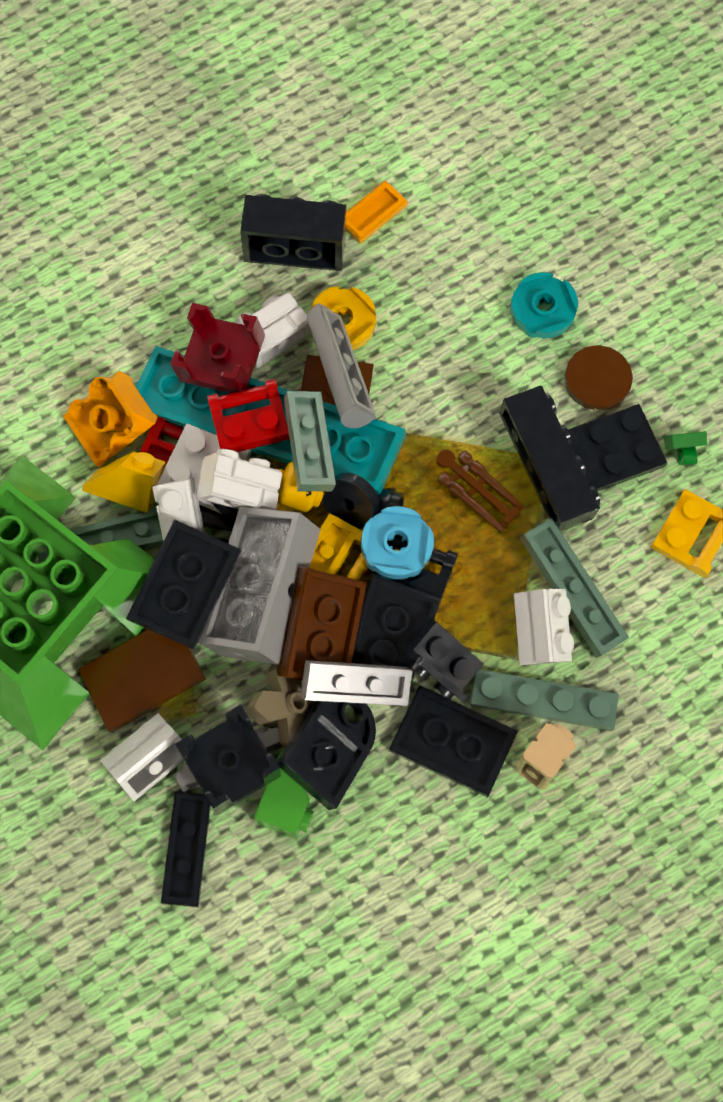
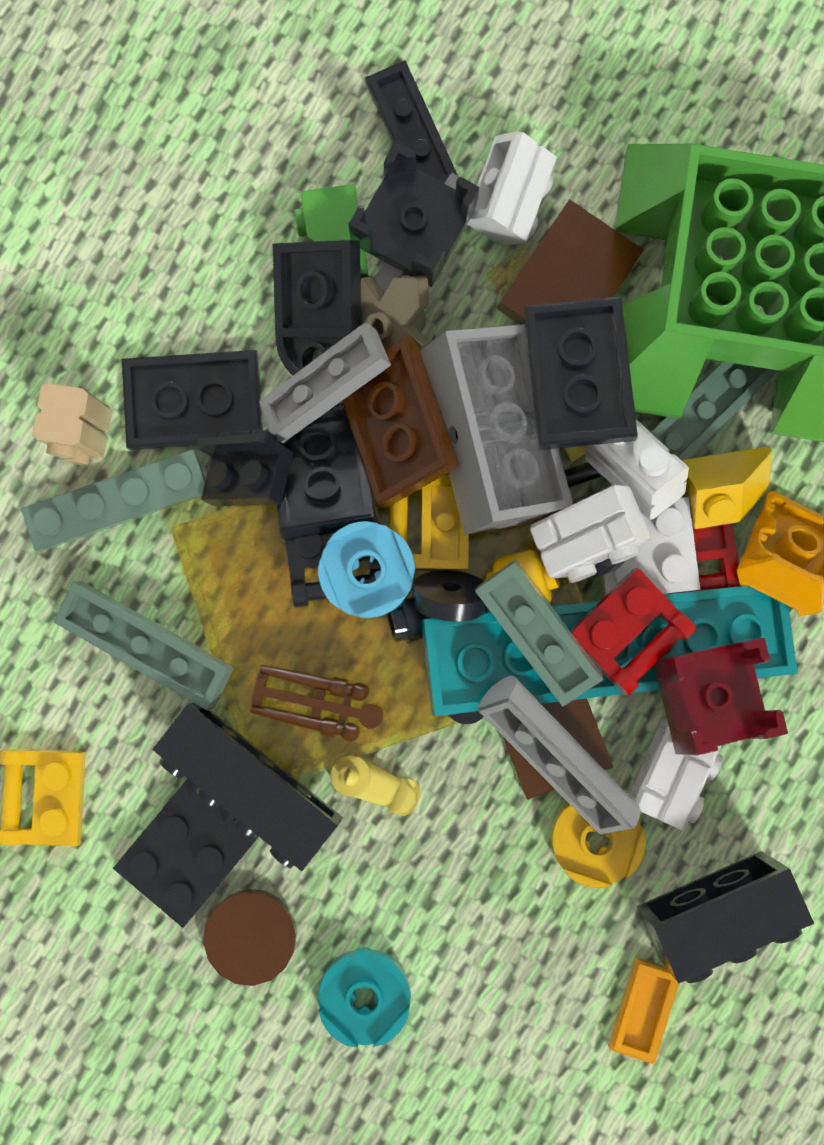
camera: 155 degrees right, 15 degrees up
(465, 423) = (373, 784): none -> light yellow piece
(543, 626) = (151, 573): white brick -> none
(686, 445) = (101, 904): green tile -> none

